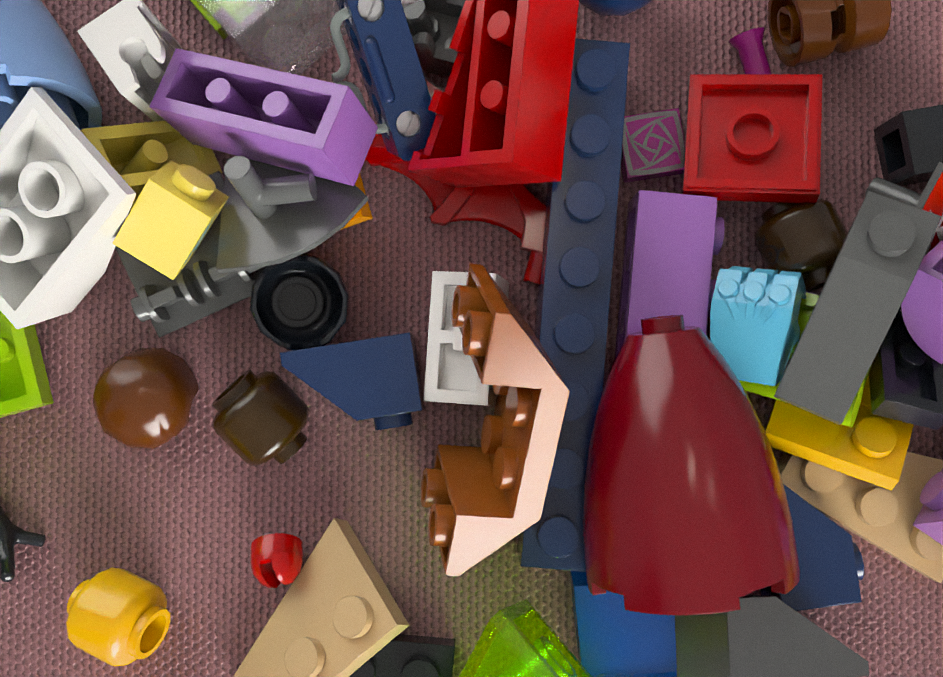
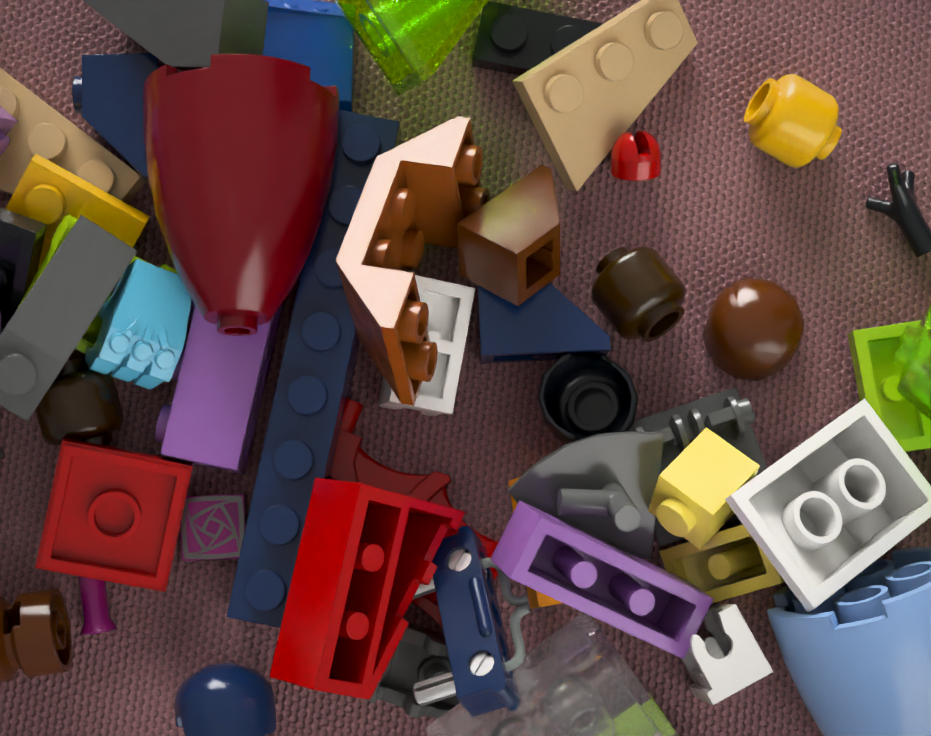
camera: 170 degrees left, 5 degrees down
(386, 454) = (513, 239): none -> reddish brown slope

